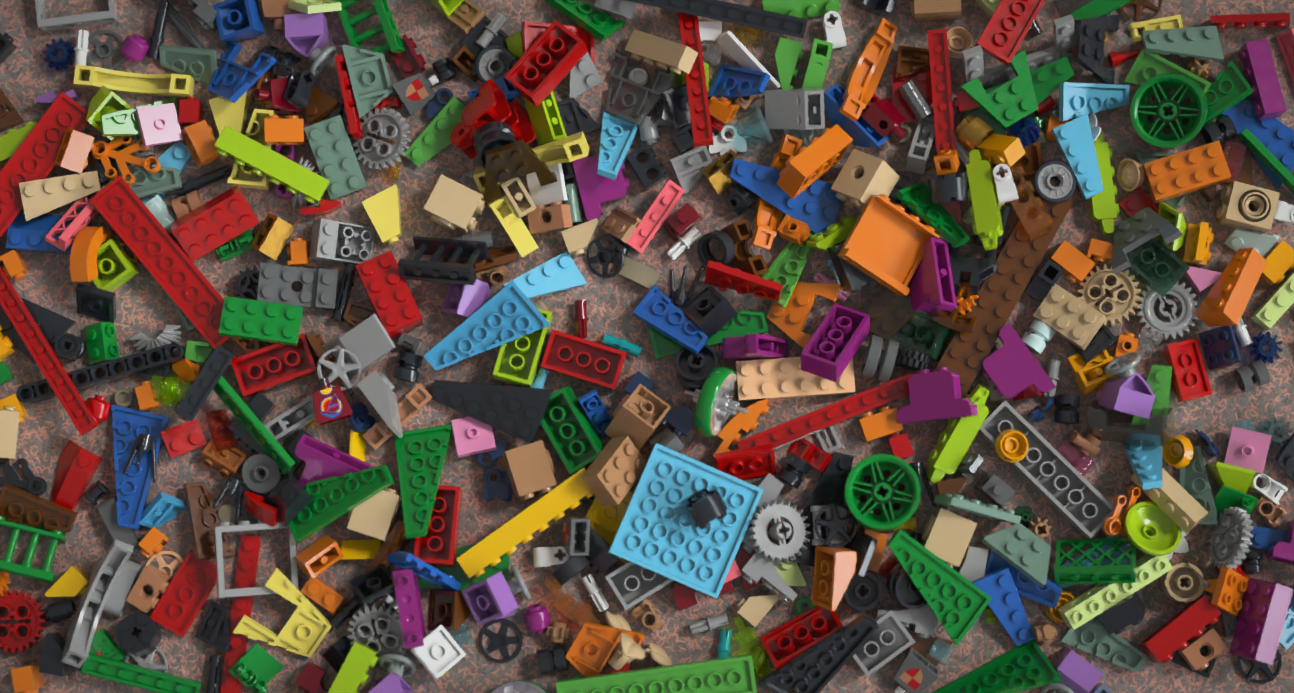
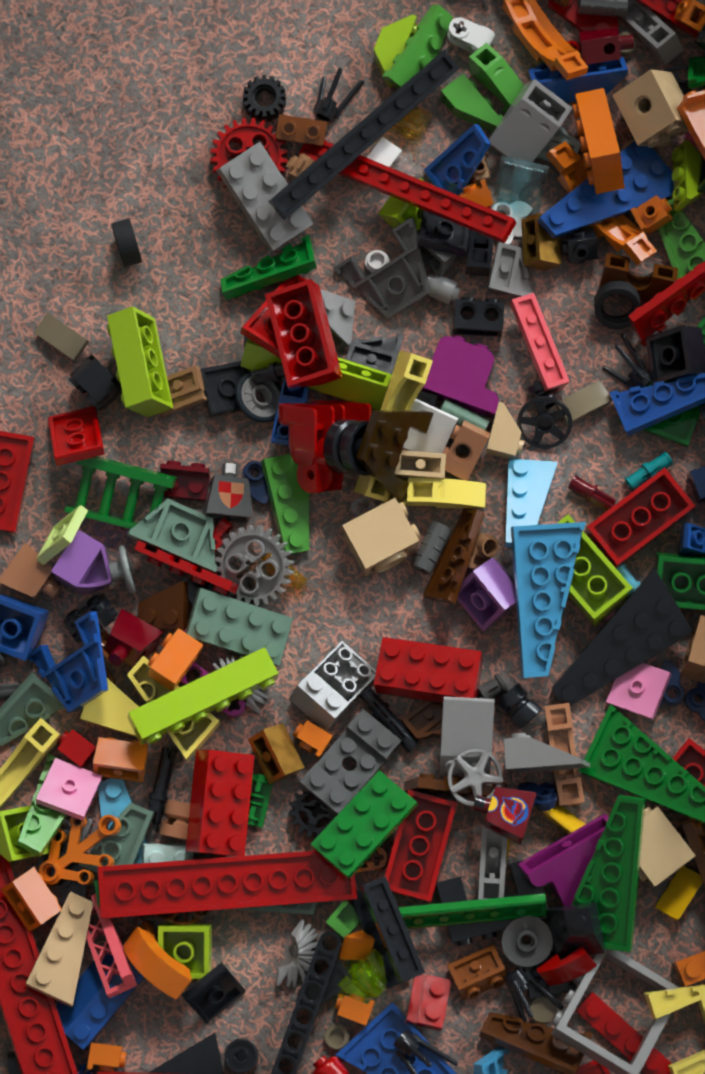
camera: 55 degrees left, 5 degrees down
(101, 342) = (259, 1019): green bracket -> none
(218, 425) = (442, 953): clear red slope -> none
(297, 90) = (140, 612): black piece -> none
(319, 556) = (660, 940): orange brick -> none
(326, 206) = (284, 677): red slope -> none
(385, 214) = (337, 619): light yellow slope -> none
(441, 271) = (446, 598): black fence -> none
(444, 70) = (228, 452): black wheel -> none
(465, 62) = (236, 424): reddish brown slope -> none
(491, 30) = (222, 373): light grey axle -> none
(615, 143) = (434, 329): medium azure wing -> none
(621, 224) = (523, 382): medium nougat plate -> none
(661, 51) = (373, 214): tan brick -> none
(682, 221) = (563, 318): dark red torso -> none
(683, 243) = (585, 334): white axle -> none
(744, 57) = (432, 139): white slope -> none

